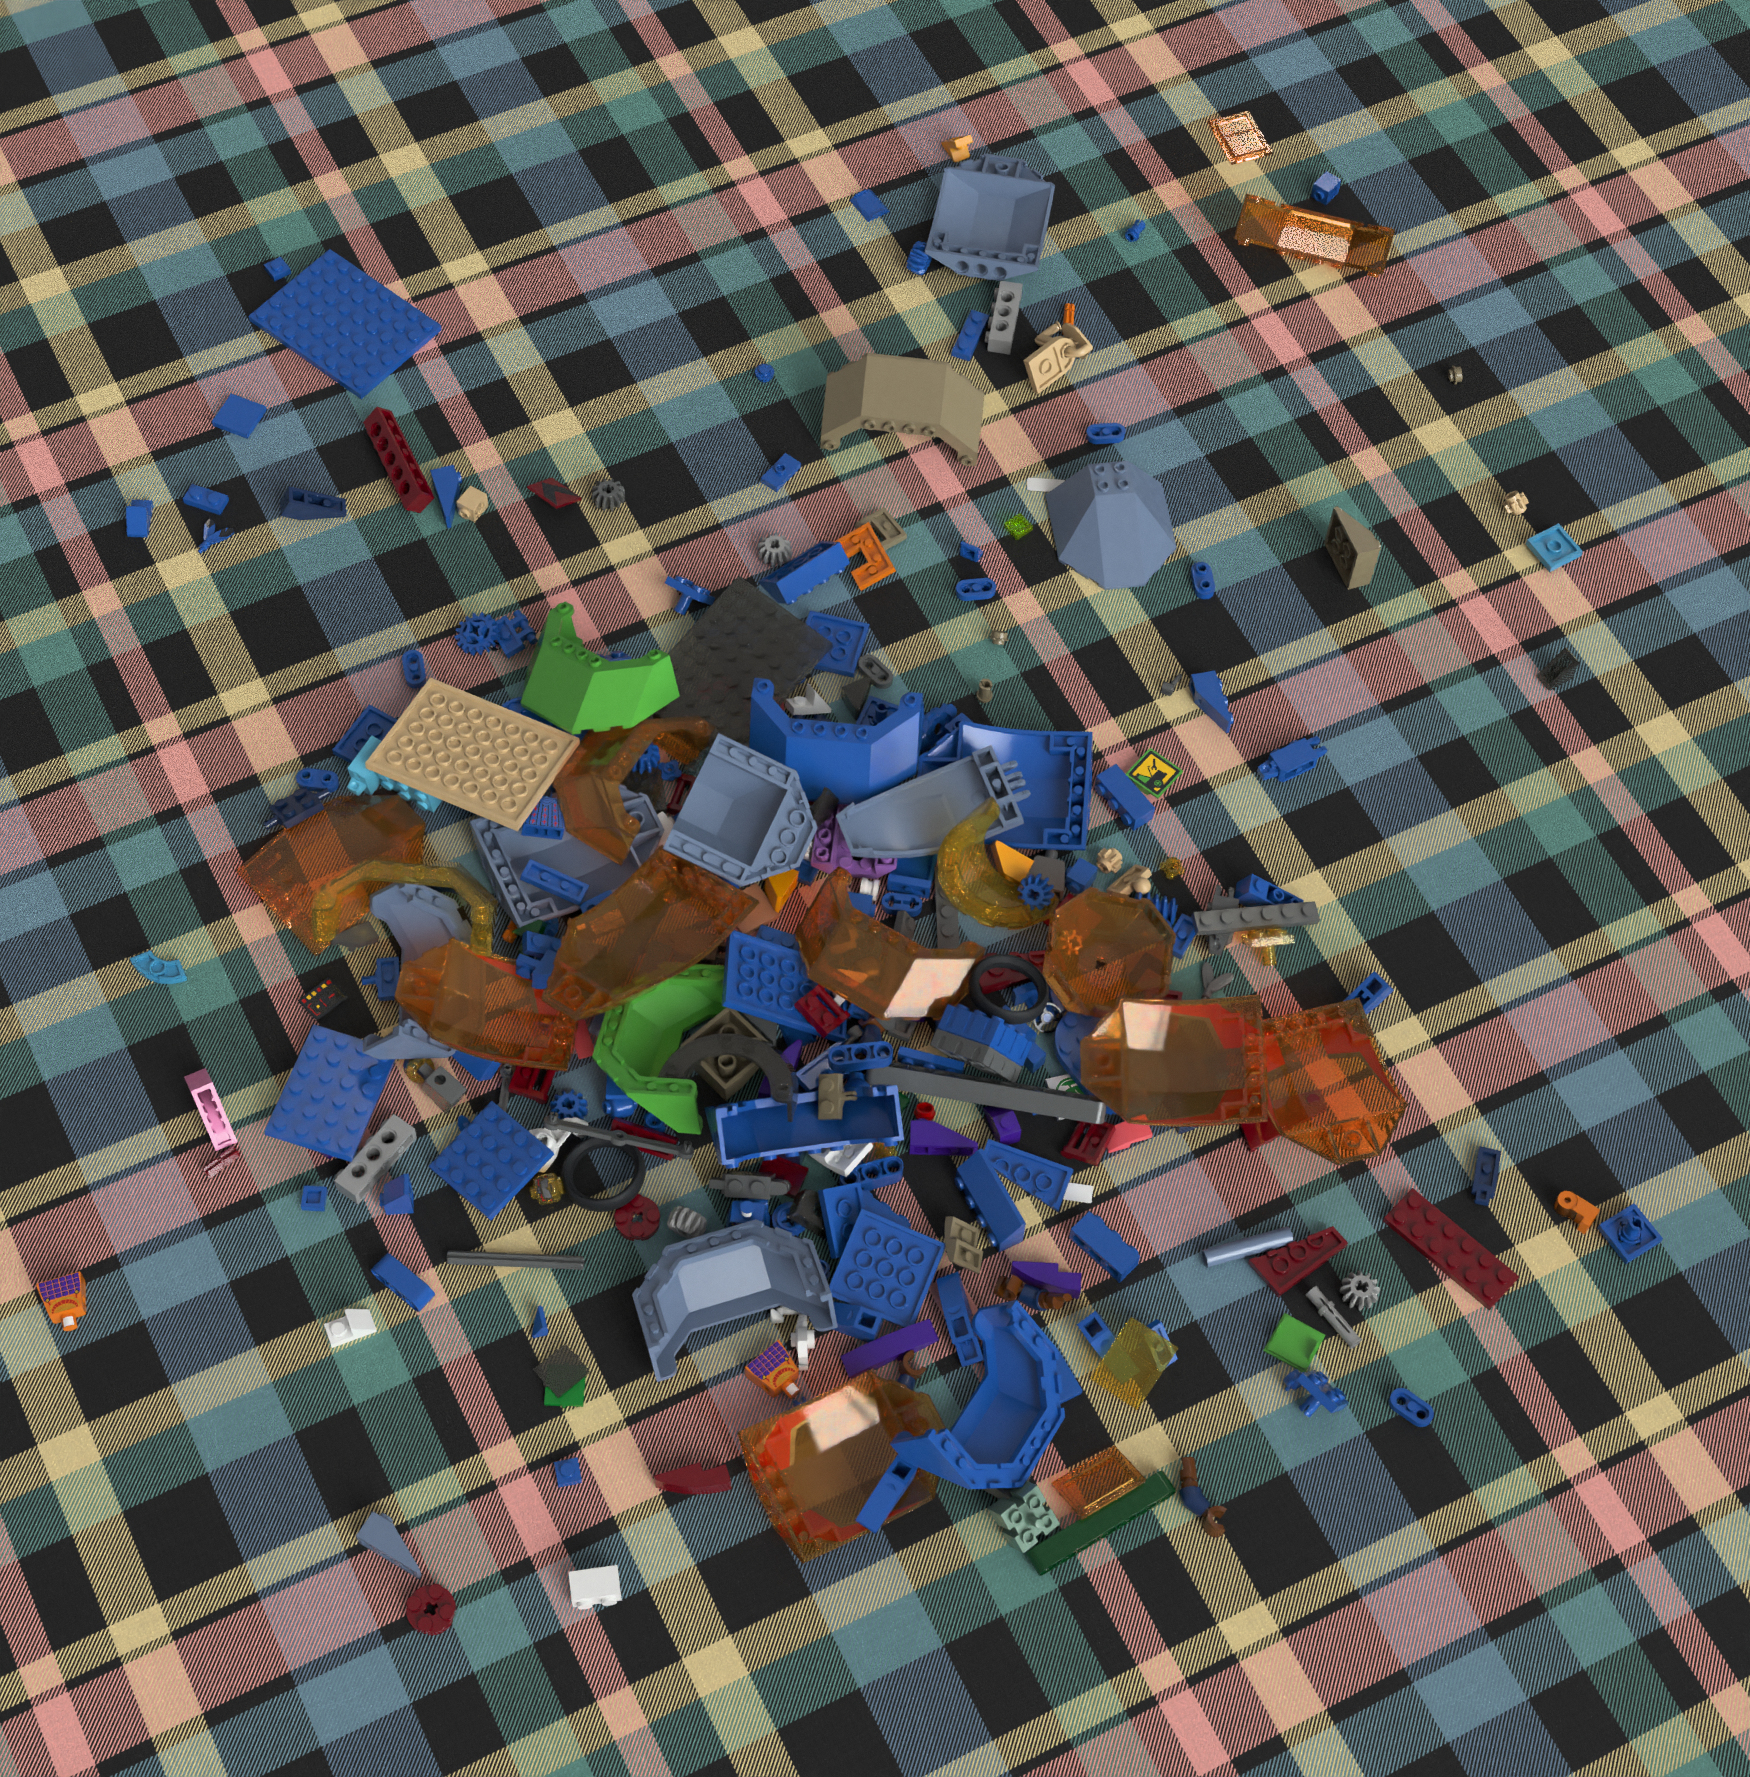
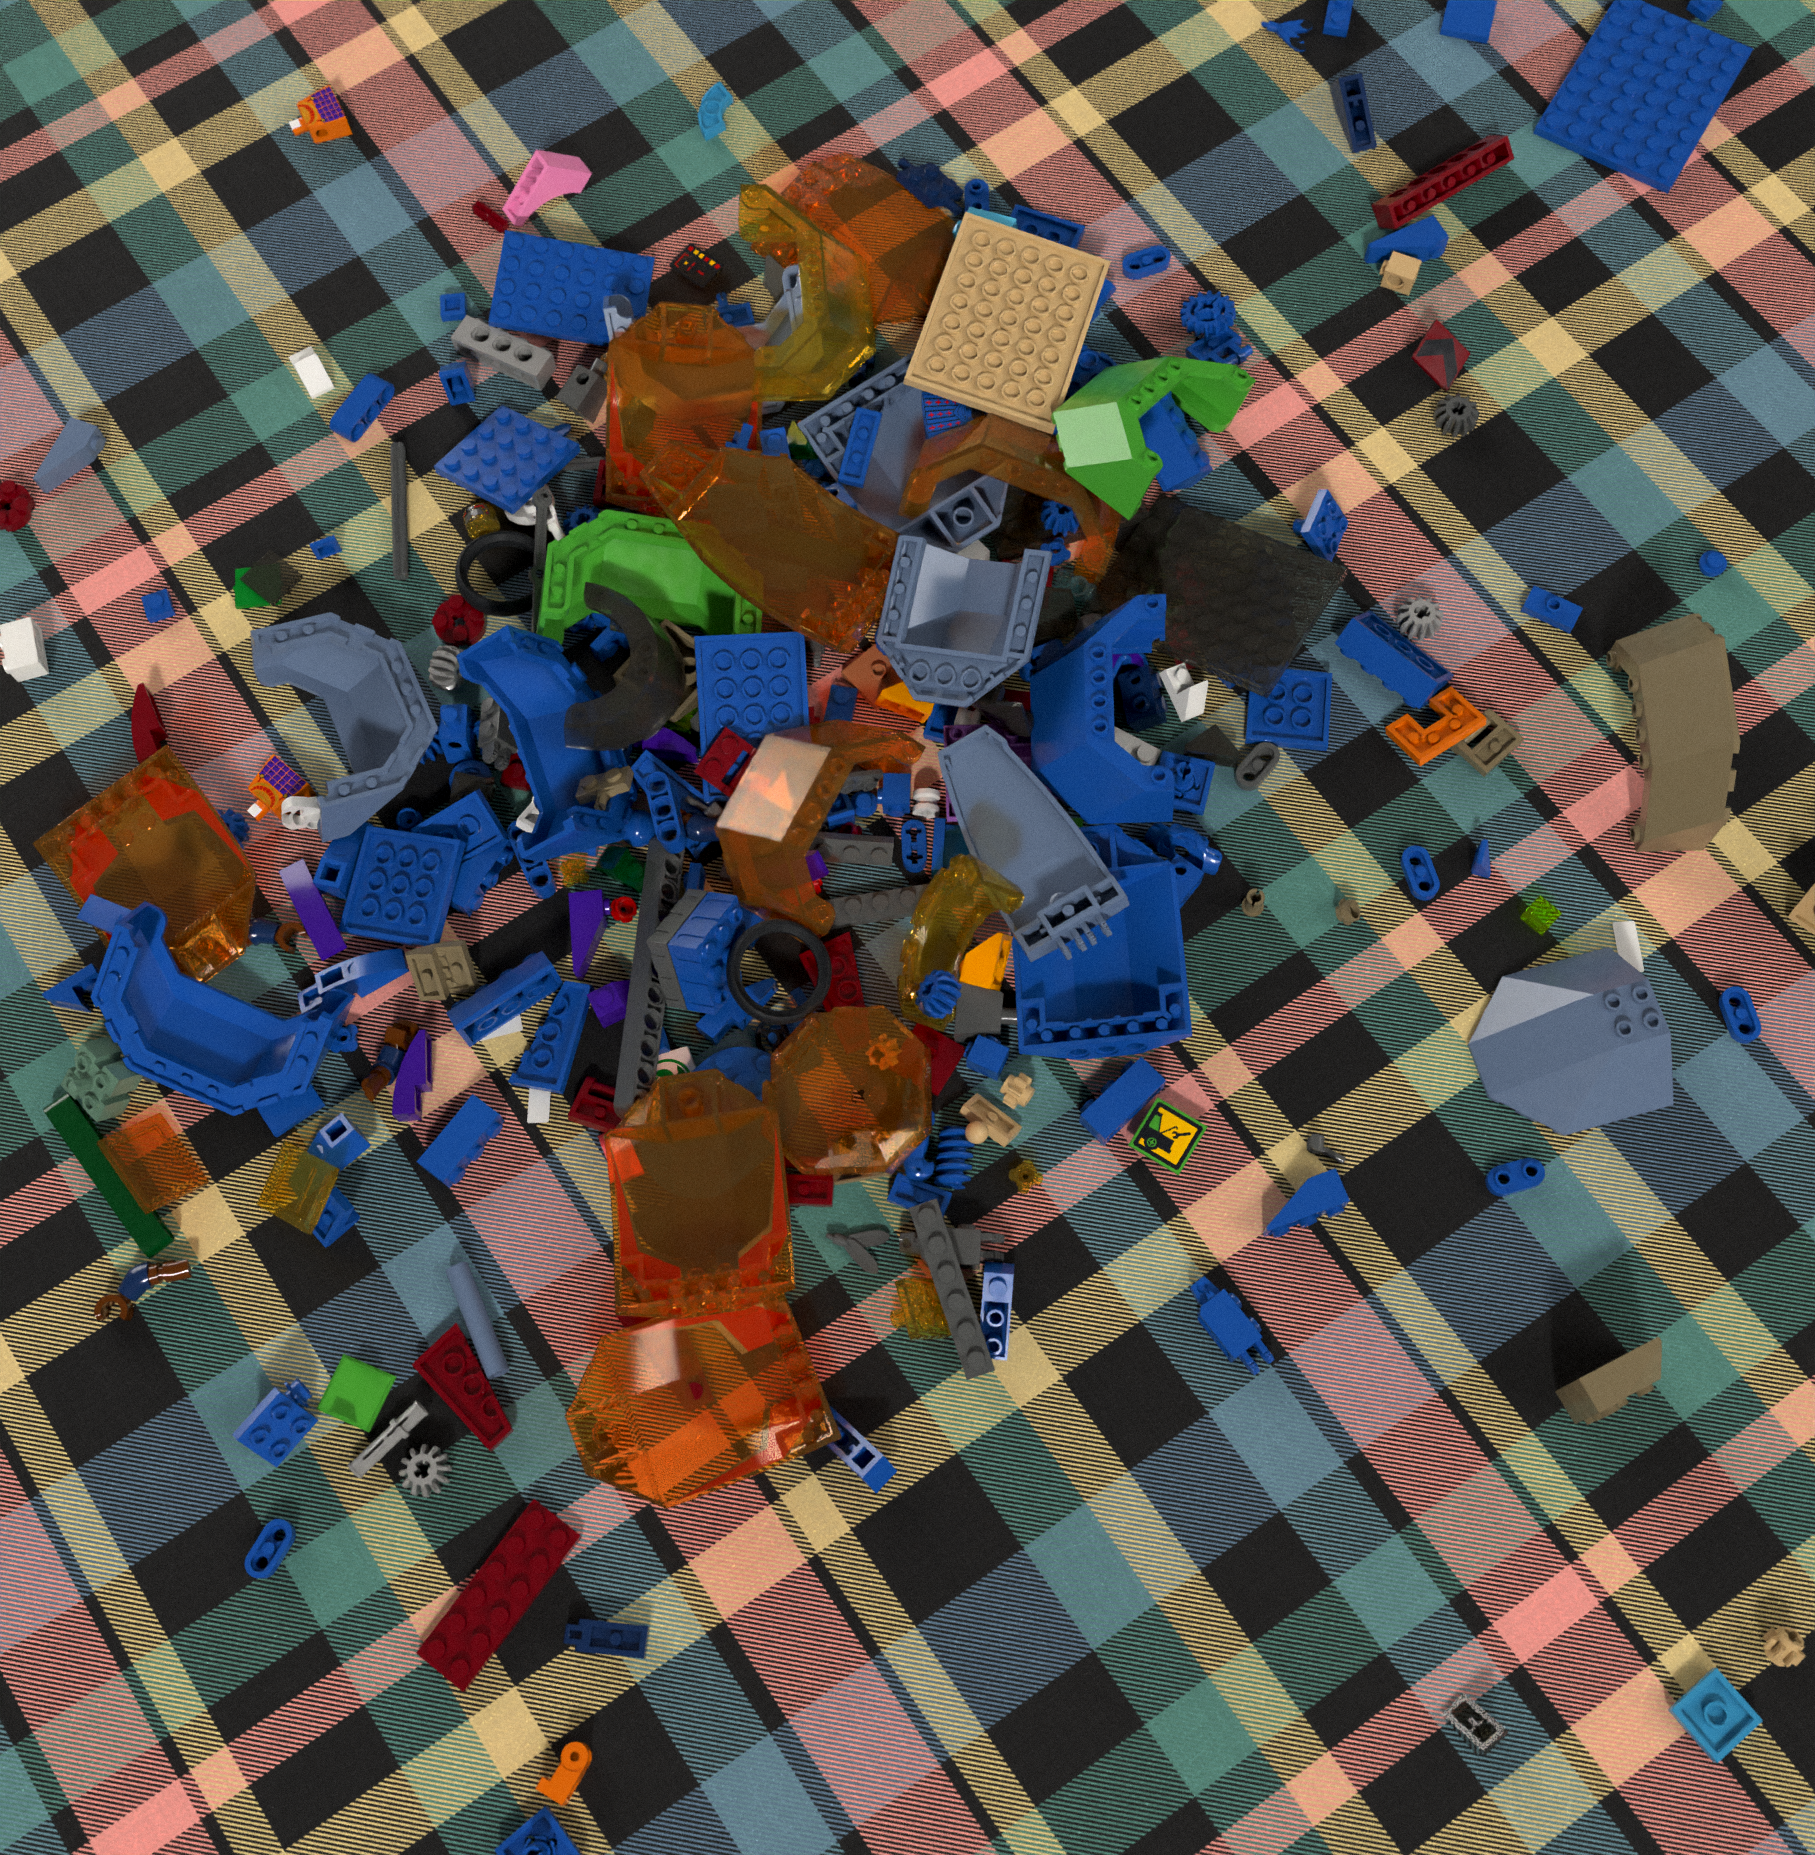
camera: 90 degrees right, 10 degrees up
(937, 1551) = (70, 991): none -> blue slope

